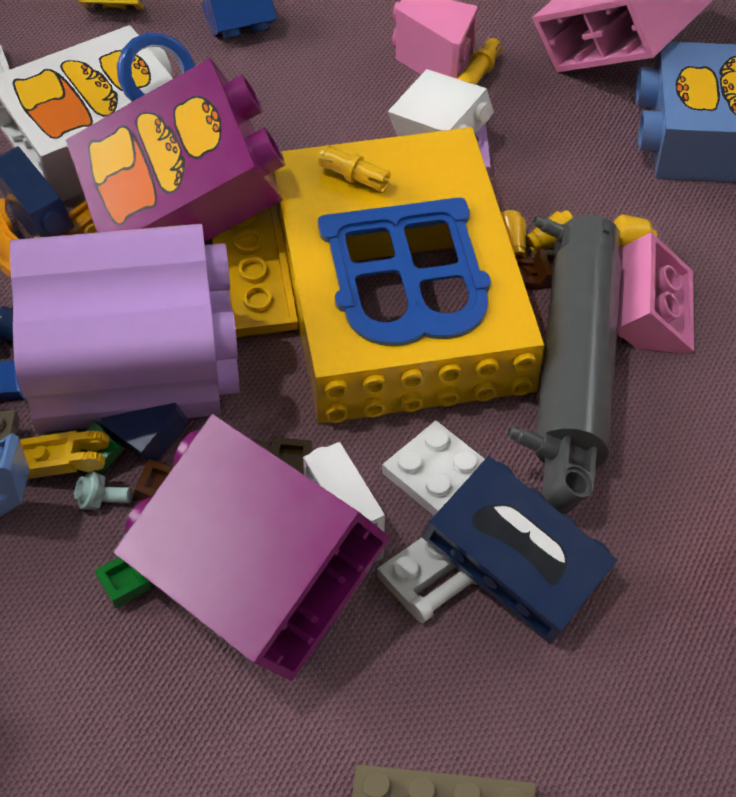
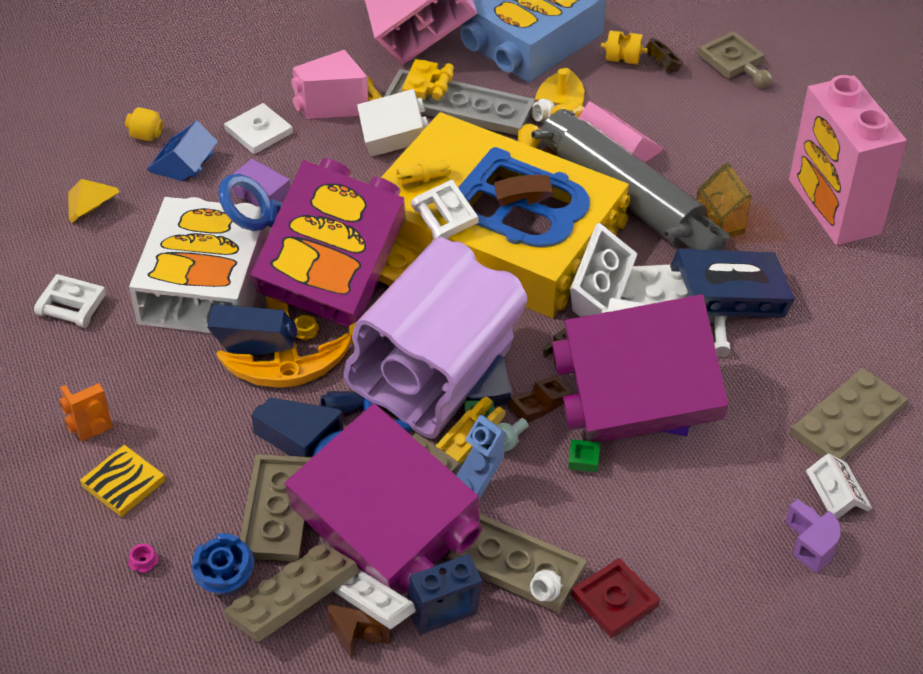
camera: 50 degrees left, 5 degrees down
(260, 74) = (271, 181): none -> medium lavender brick
(319, 223) = (450, 204): none -> white plate
(337, 36) = (258, 128): none -> white plate
(386, 410) = (601, 272): none -> white slope
(419, 259) = (532, 187): none -> reddish brown slope
(538, 97) = (422, 77): none -> yellow plate
(550, 145) = (475, 105): none -> light grey plate
(617, 207) = (542, 110): none -> white plate
(646, 460) = (726, 200): none -> clear yellow slope
(678, 209) = (561, 87): none -> yellow shield

